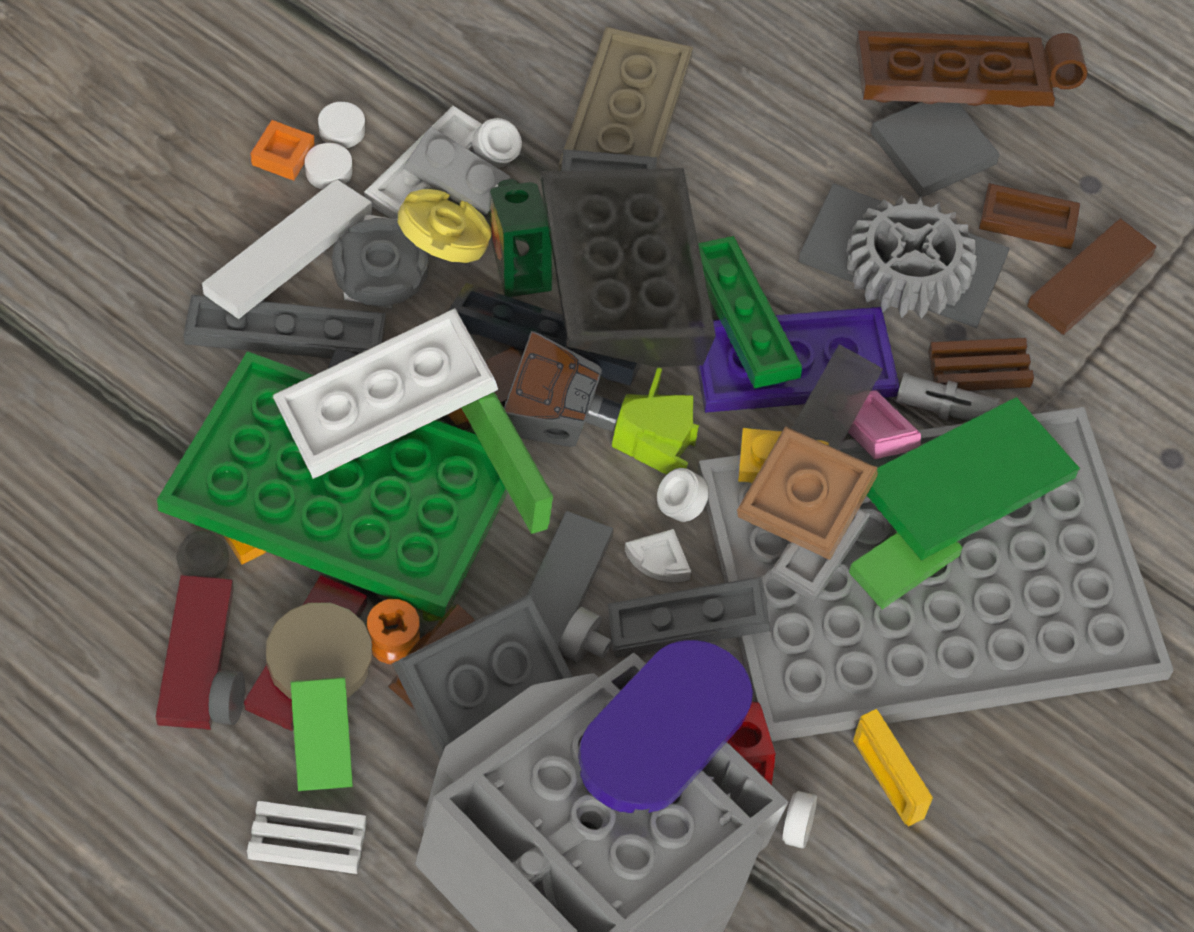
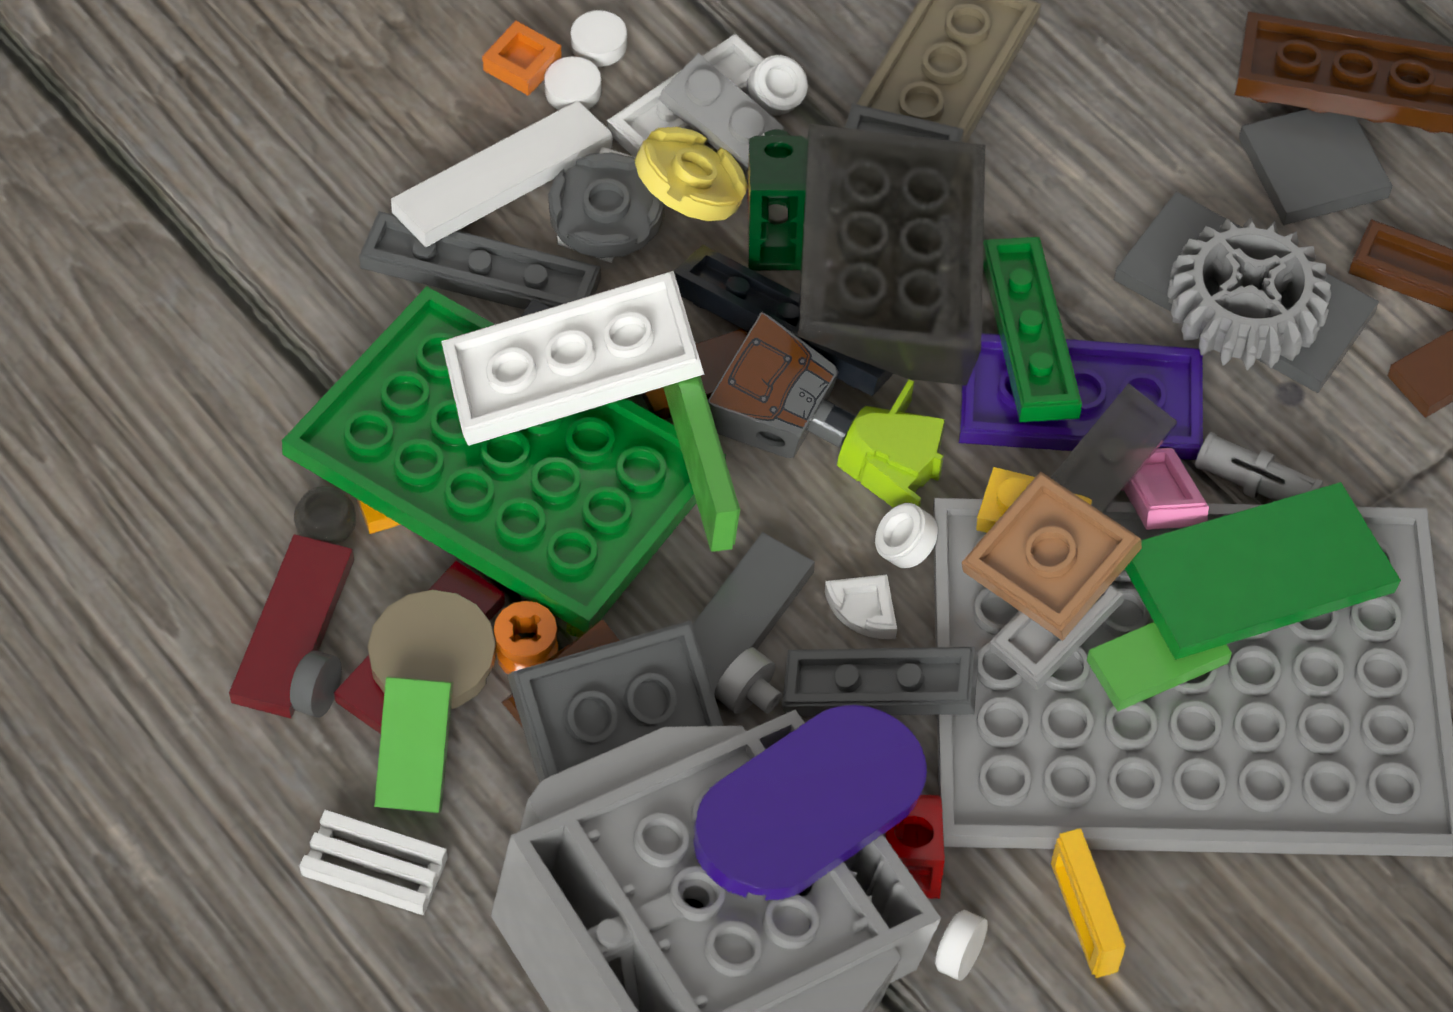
camera: 15 degrees right, 0 degrees up
(978, 358) = (1310, 430): reddish brown tile -> none

